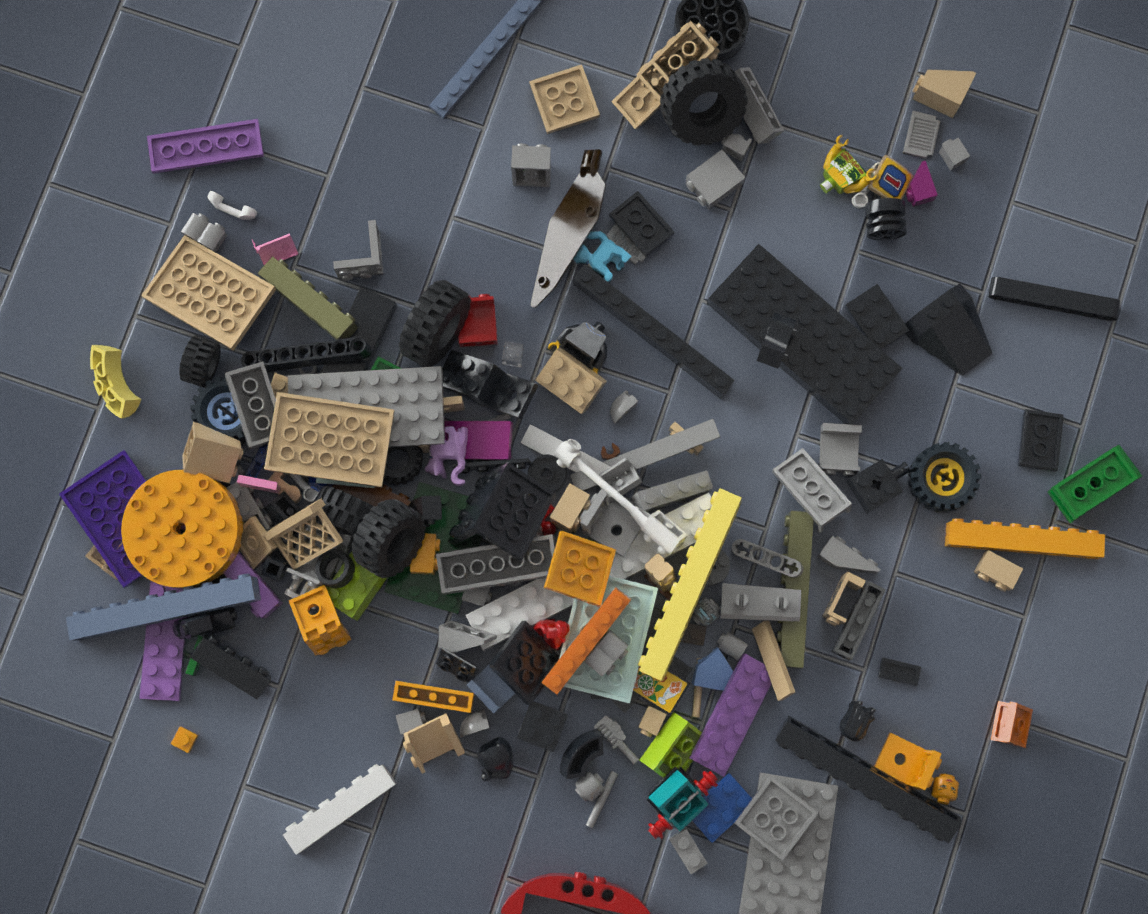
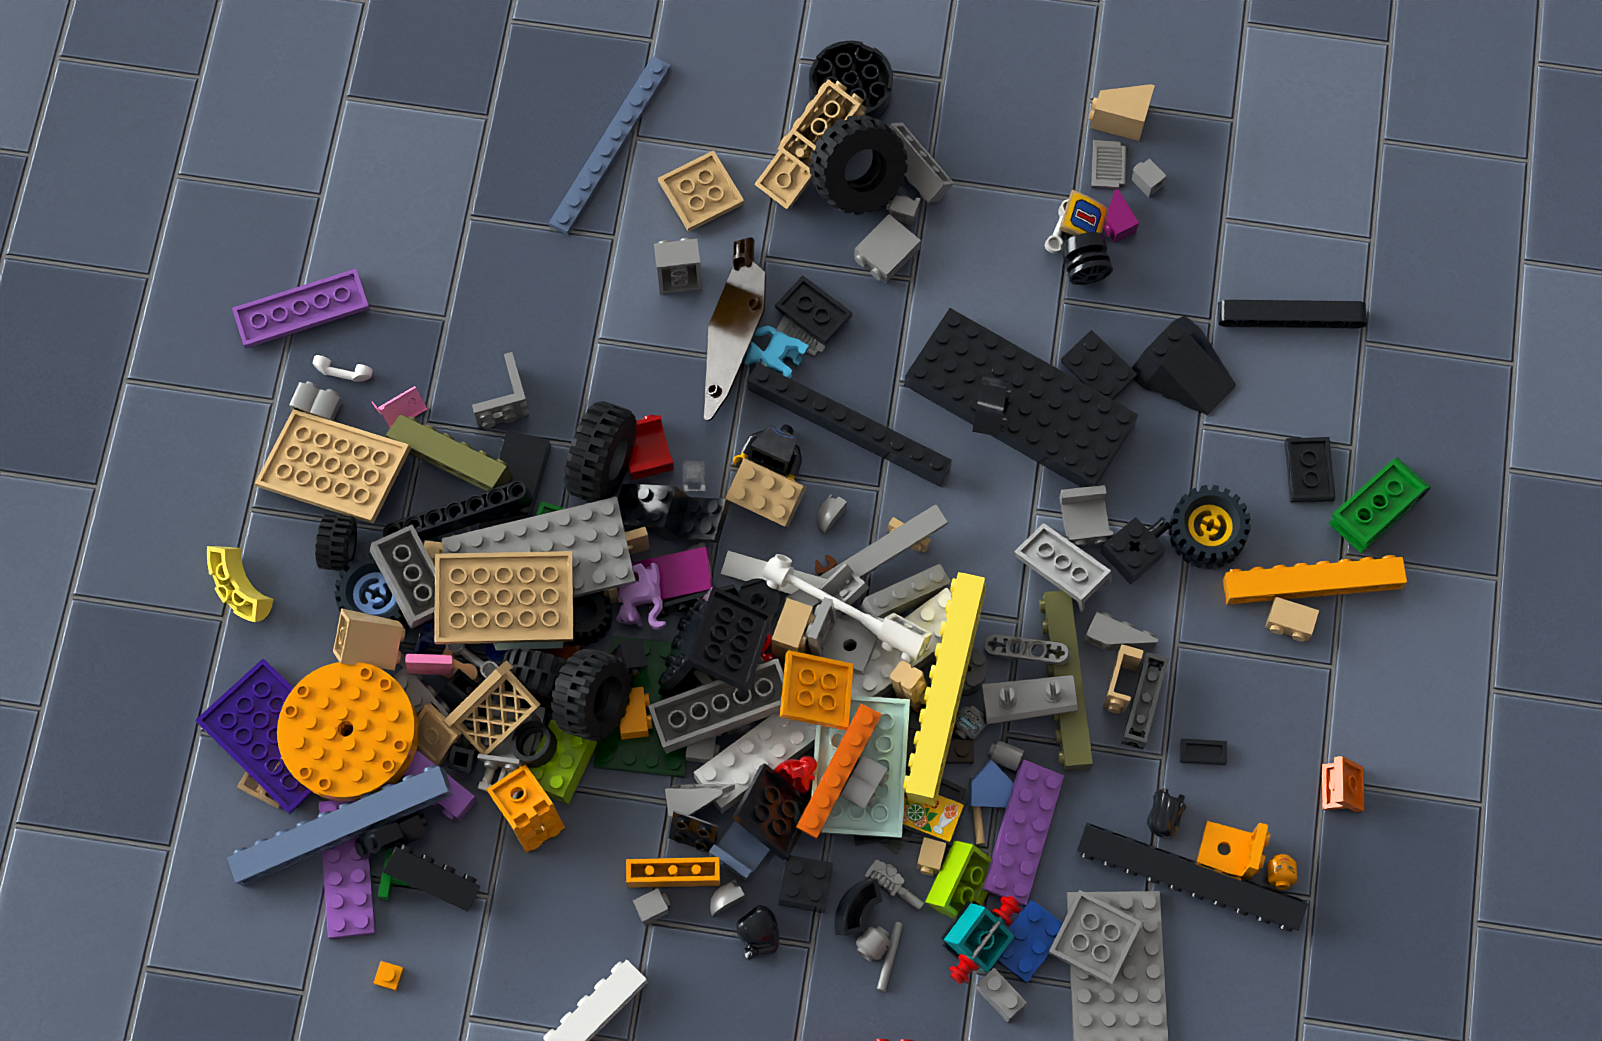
camera: 10 degrees left, 10 degrees down
(432, 741) = (681, 922): tan panel -> none
(773, 660) = (1057, 761): tan tile -> none
(844, 172) = (1029, 216): torso -> none

